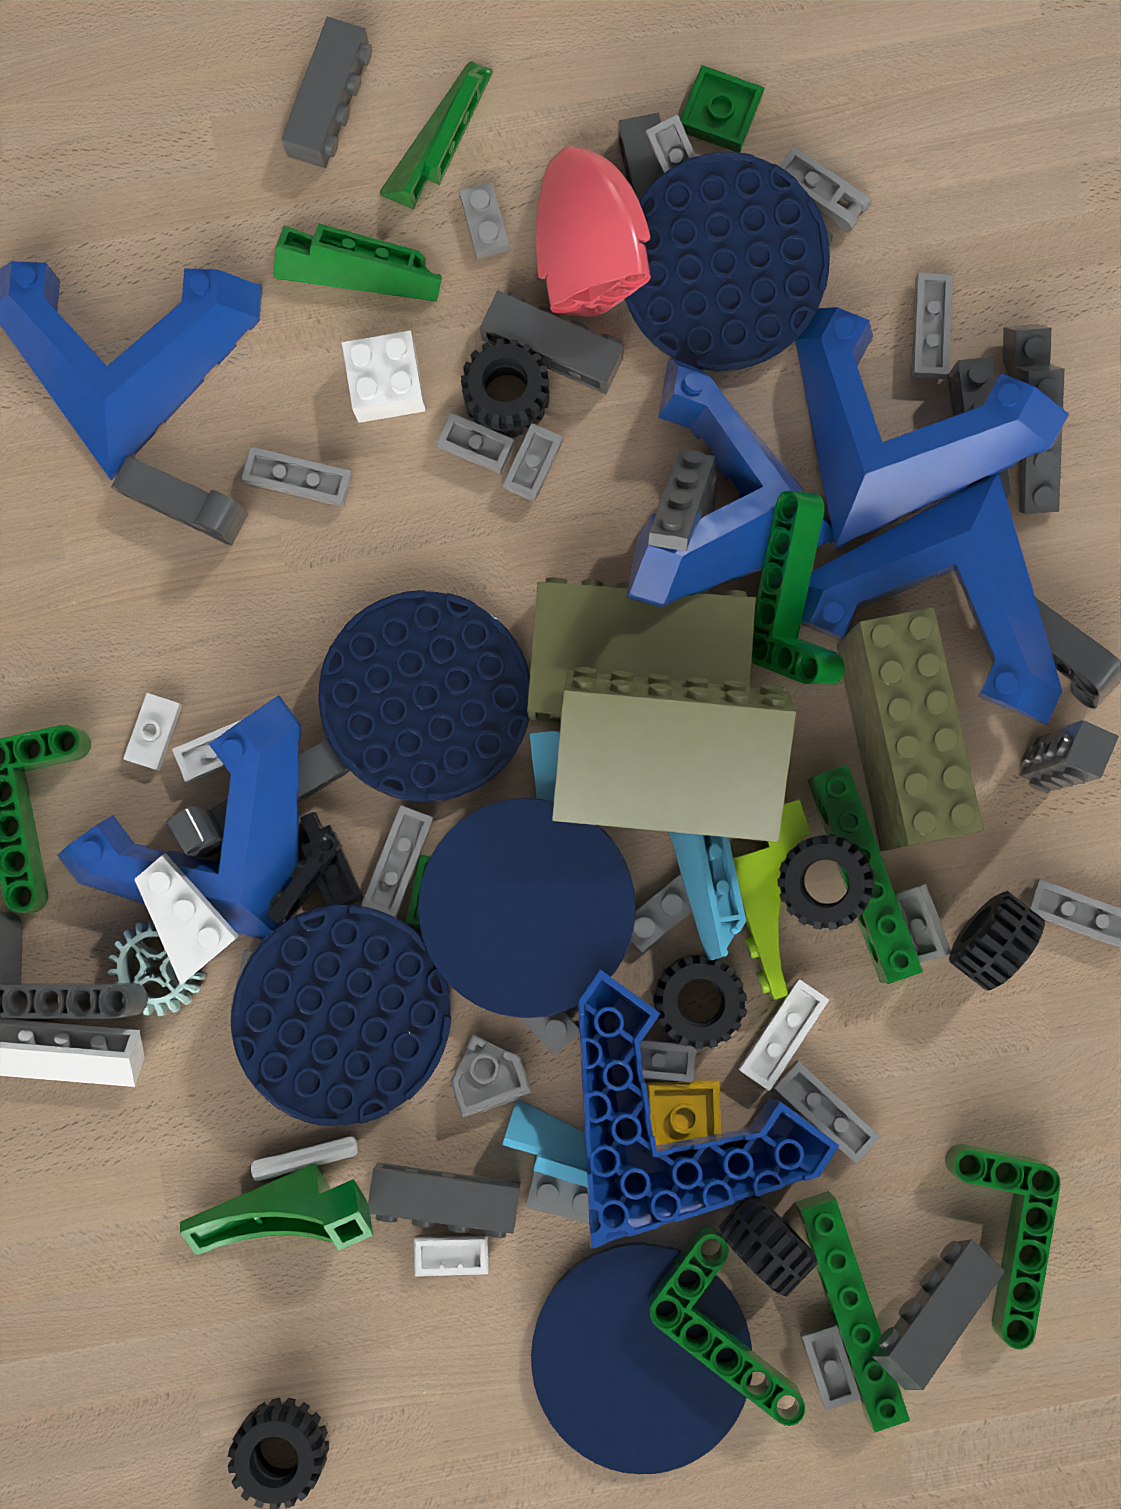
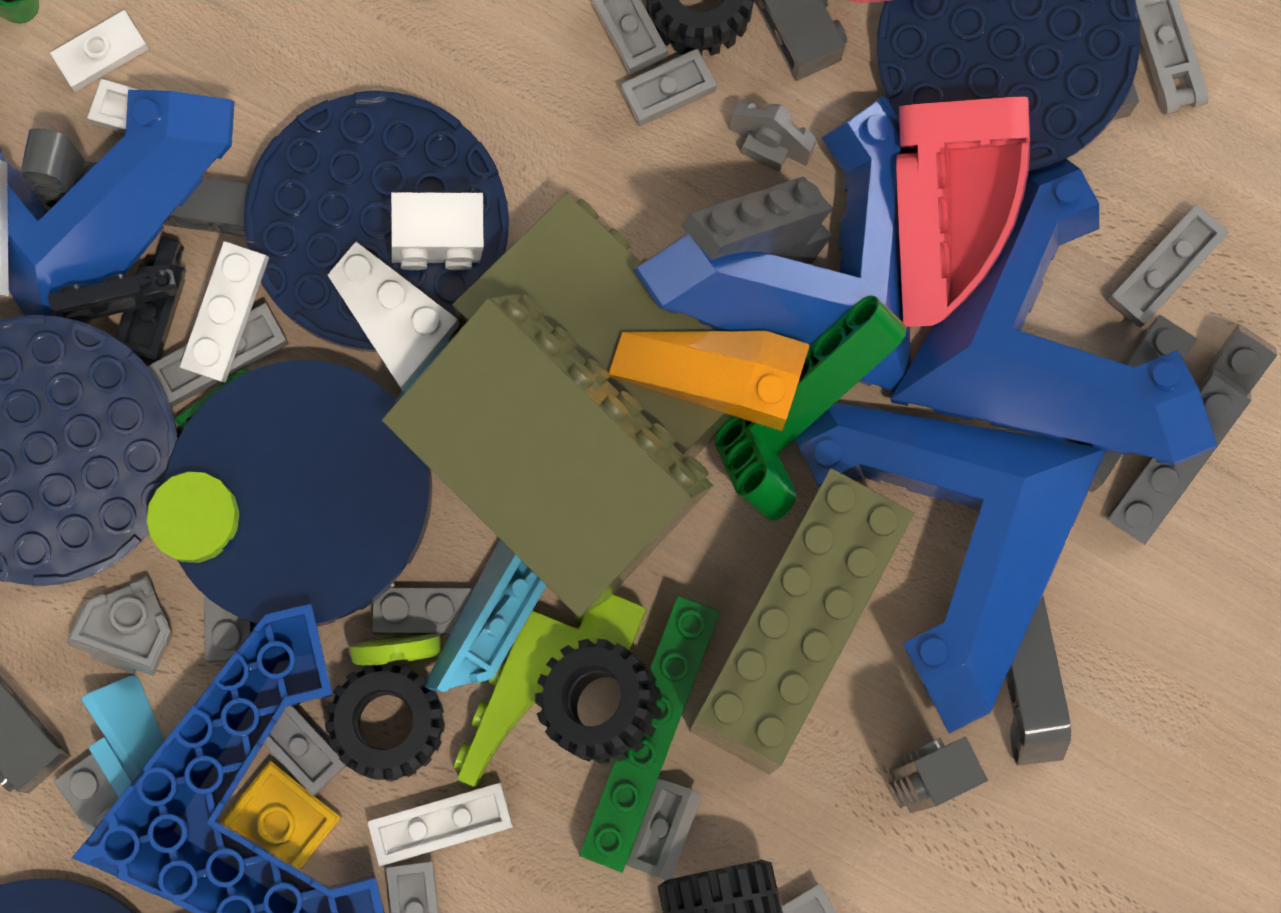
camera: 30 degrees right, 5 degrees down
(382, 832) = (224, 312): none -> white plate
(474, 670) = (436, 229): none -> white brick
(475, 976) = (192, 517): none -> lime tile
(489, 746) = (393, 313): none -> white wing
(624, 441) = (771, 135): none -> light grey plate
(664, 954) = (395, 648): none -> lime tile
(735, 611) = (726, 371): none -> light orange wedge
(779, 385) = (957, 197): none -> coral panel

